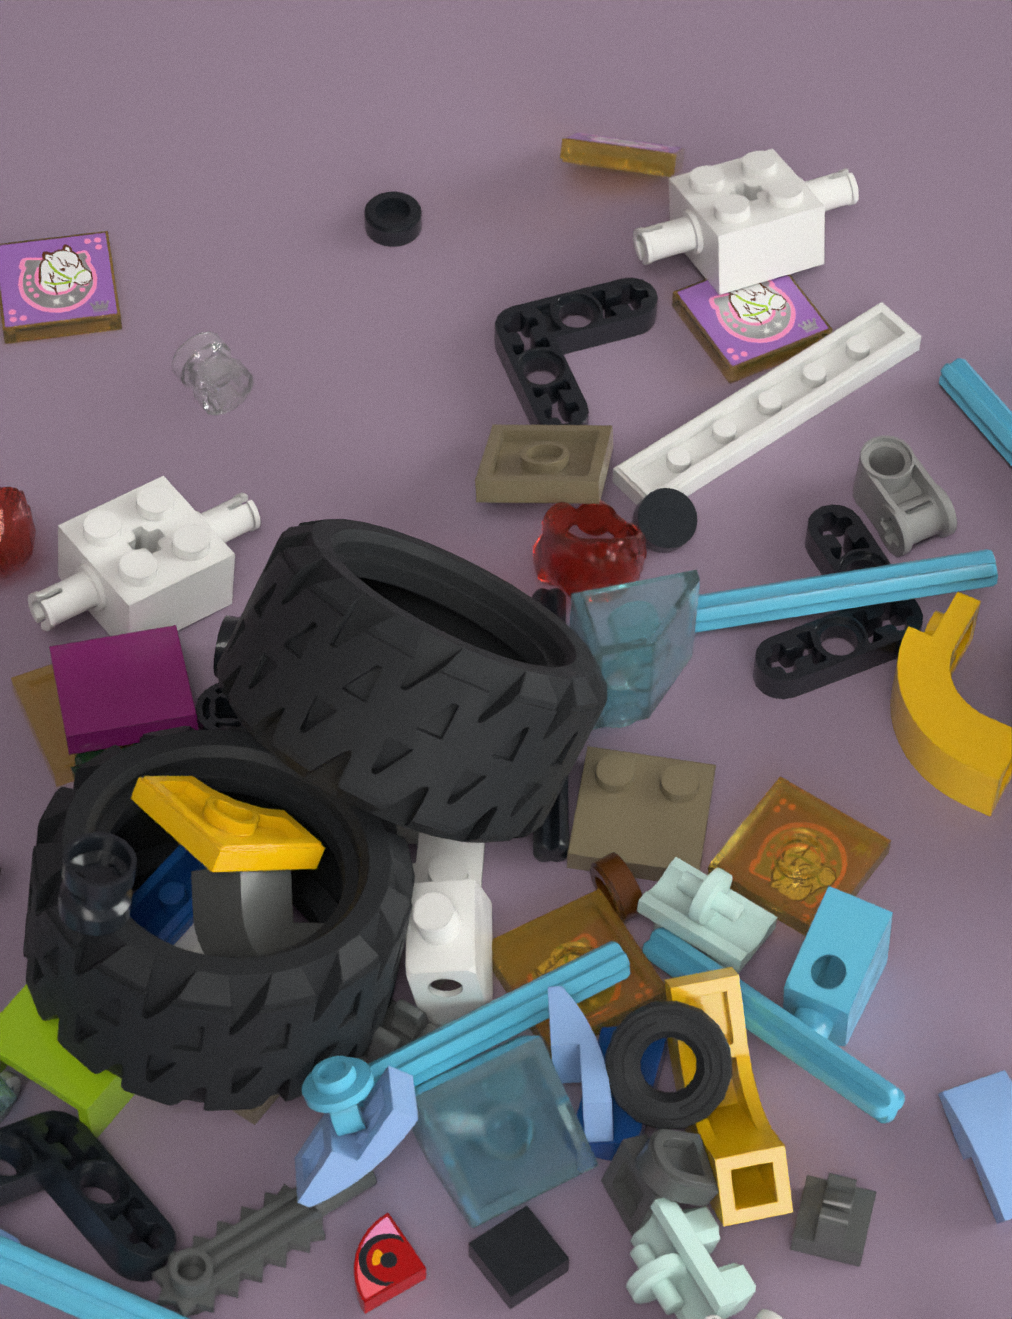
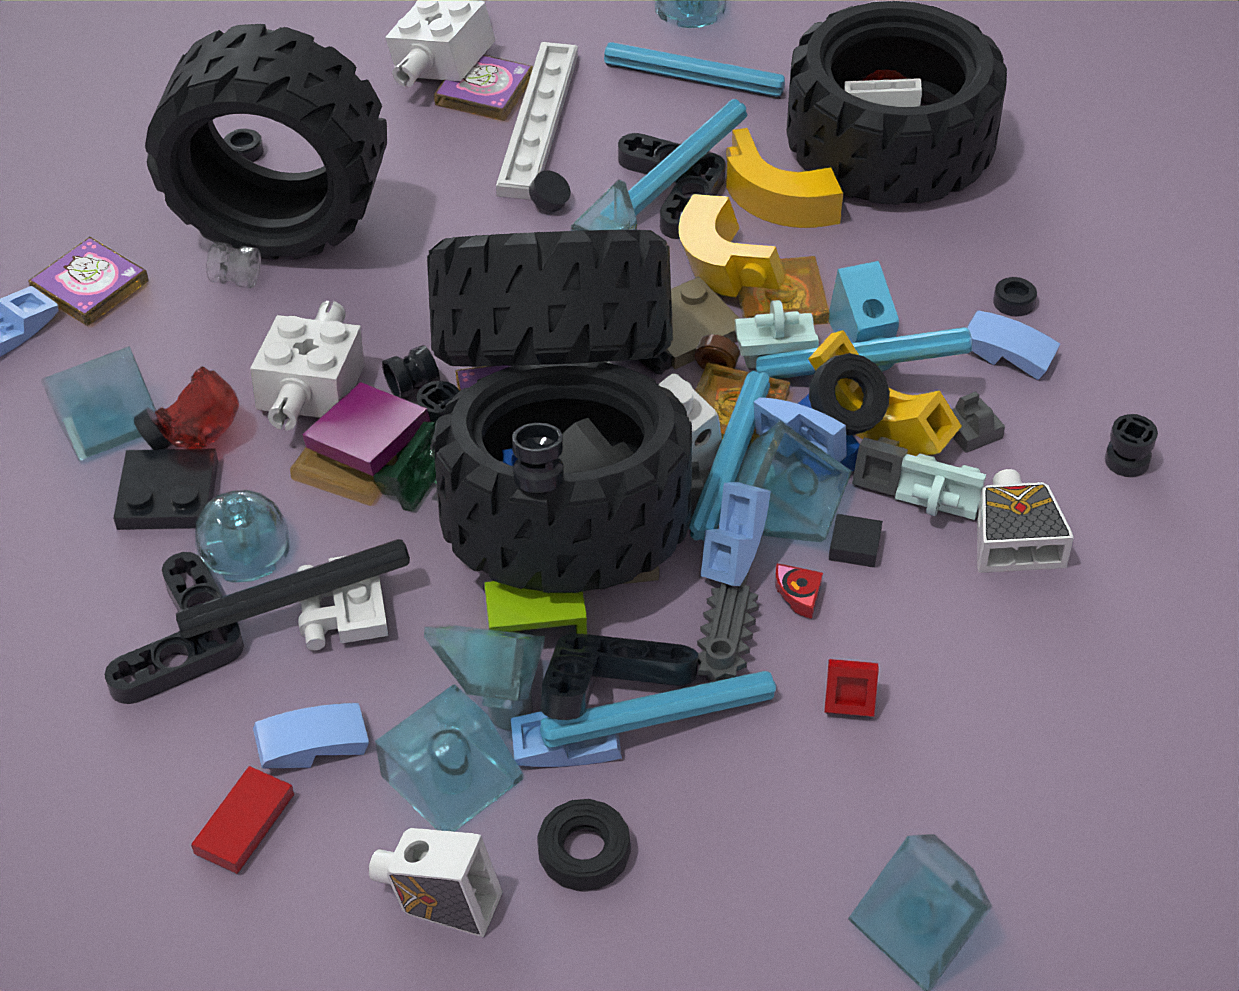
camera: 40 degrees left, 5 degrees down
(225, 831) = (556, 411): yellow tile -> none
(327, 247) = (284, 80): none -> black tyre
(338, 1088) = (714, 507): medium azure plate -> none
(544, 464) = (466, 198): dark tan plate -> none
(552, 339) = (433, 177): black beam -> none
(586, 563) = (548, 214): clear red hair -> none
(622, 154) = (357, 38): clear yellow tile -> none
(677, 1167) = (898, 437): dark grey tile -> none
(756, 730) = (706, 236): none -> yellow arch
(900, 495) = (648, 113): light grey piece -> none

